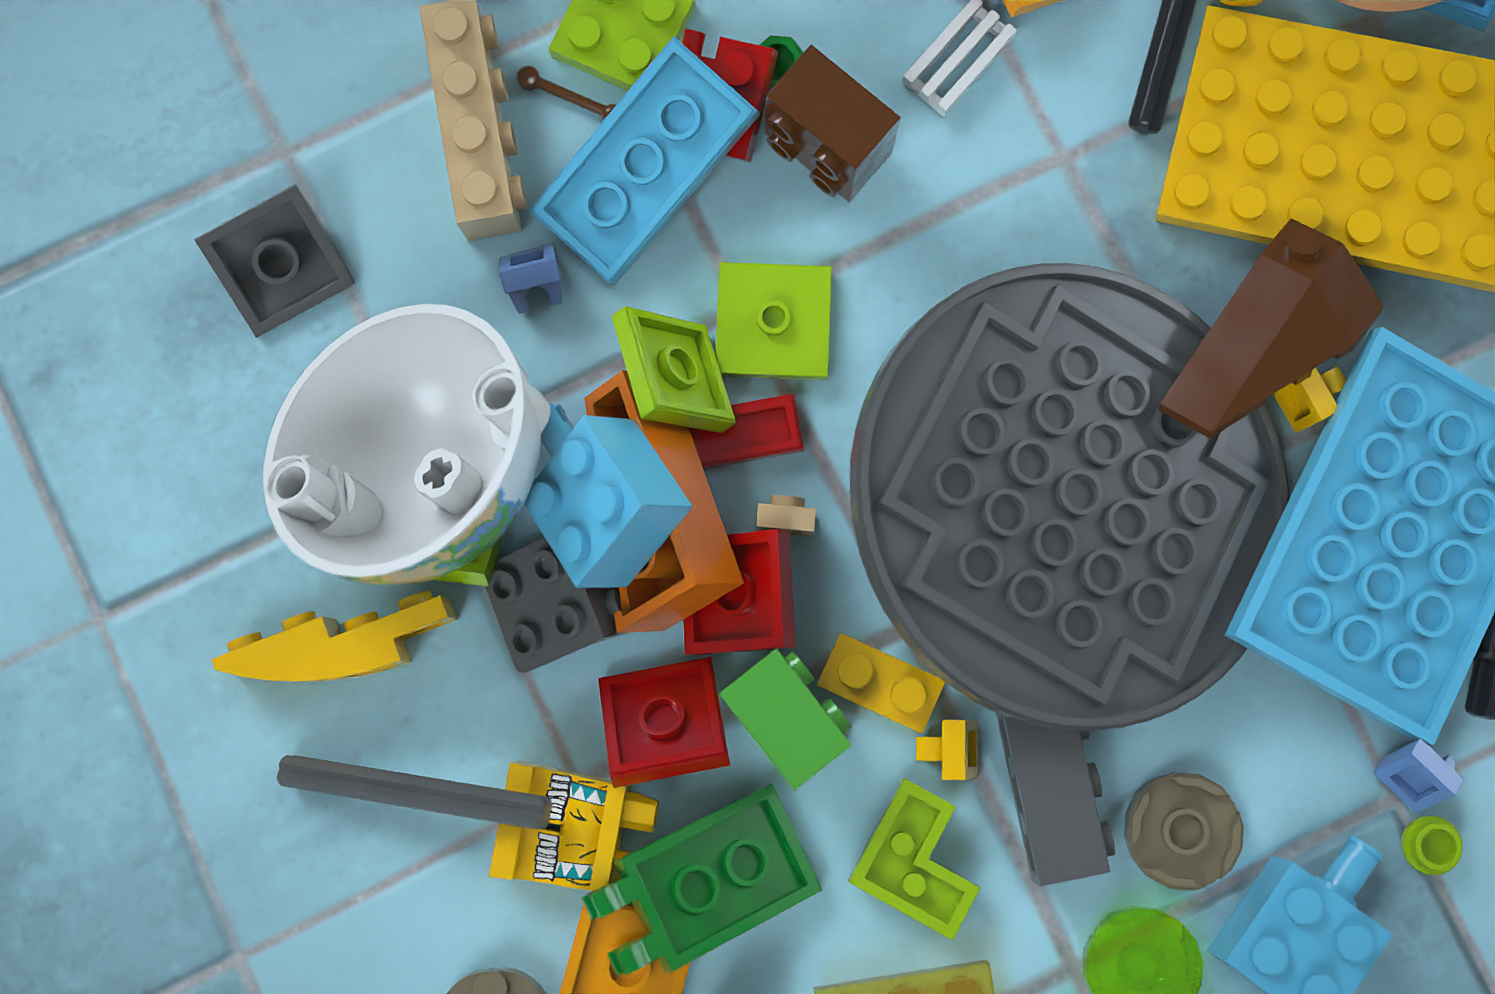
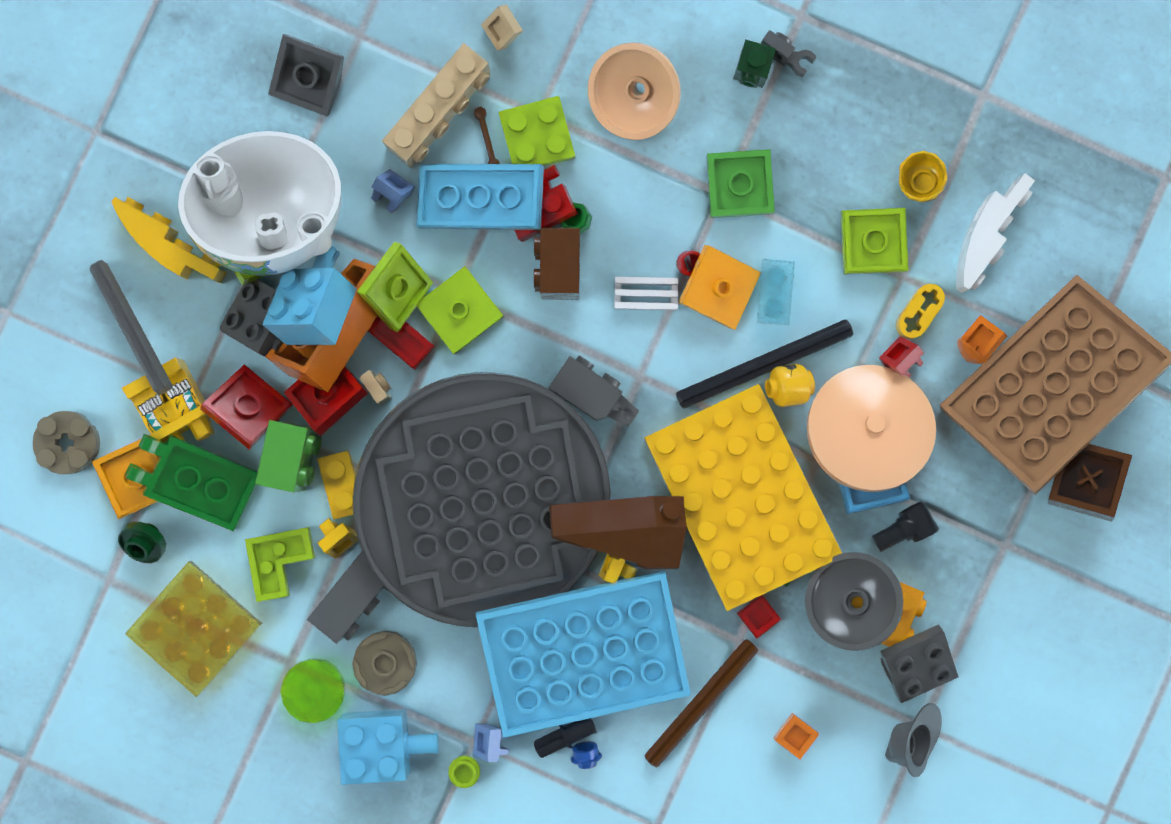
camera: 50 degrees right, 5 degrees up
(1038, 229) = (592, 393): none -> dark grey hinge

